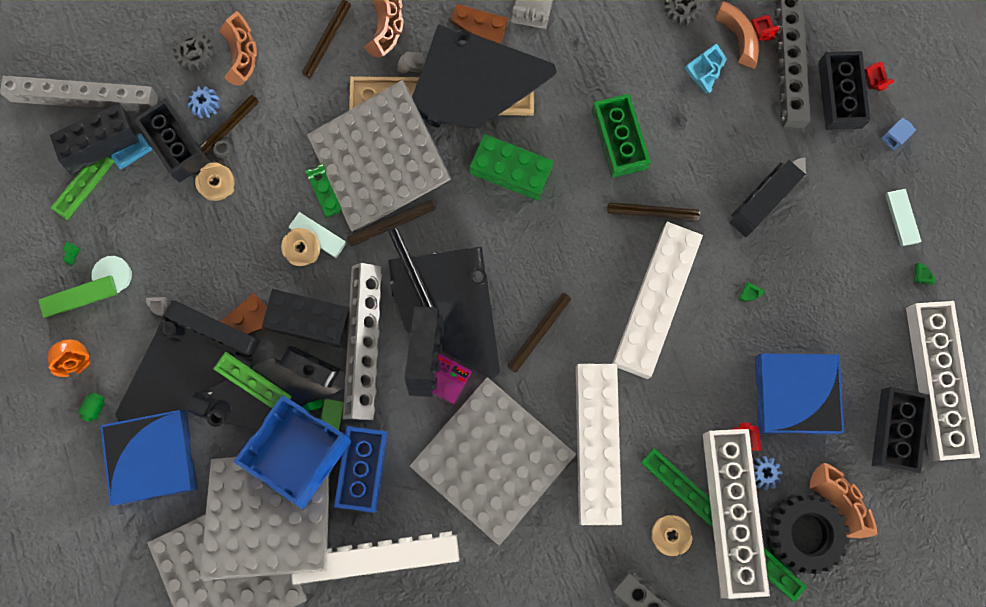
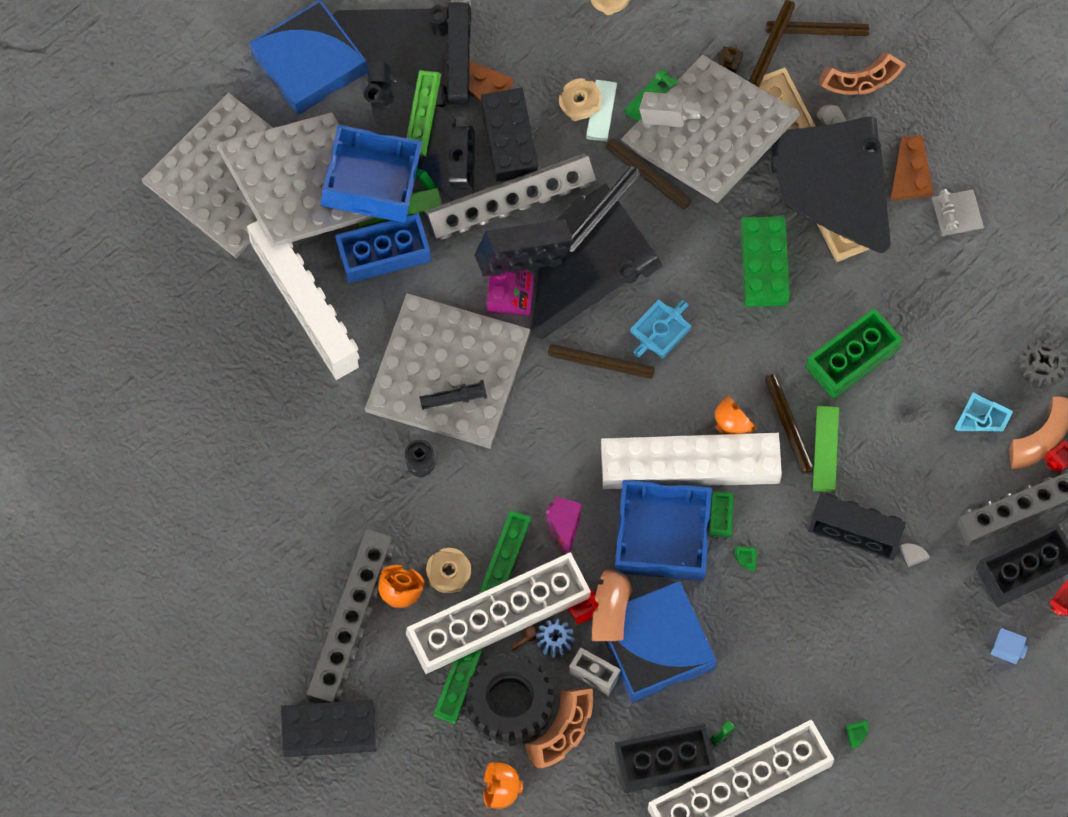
camera: 70 degrees right, 10 degrees down
(320, 115) = (730, 58): none -> dark brown tile
(326, 76) = (772, 43): none -> dark brown axle
(349, 180) = (667, 109): none -> light grey hinge
(526, 456) = (464, 393): none -> black pin
(532, 273) = (660, 328): none -> dark azure plate
(566, 518) = (419, 458): none -> black wheel
(598, 444) = (510, 460): white brick -> none
(637, 251) = (732, 419): none -> orange cylinder
(675, 423) = (563, 522): none -> magenta slope
(675, 583) = (399, 586): none -> orange cylinder
(685, 193) = (825, 449): none -> bright green tile
(707, 347) = (663, 530): none -> blue tile
(709, 296) = (721, 514): none -> green plate
(762, 414) = (612, 600): none -> nougat brick
(808, 454) = (594, 671): none -> light grey brick
(877, 571) = (502, 785): none -> orange cylinder
(890, 375) = (726, 730): none -> green tile
(903, 217) = (913, 688): light aqua tile -> none

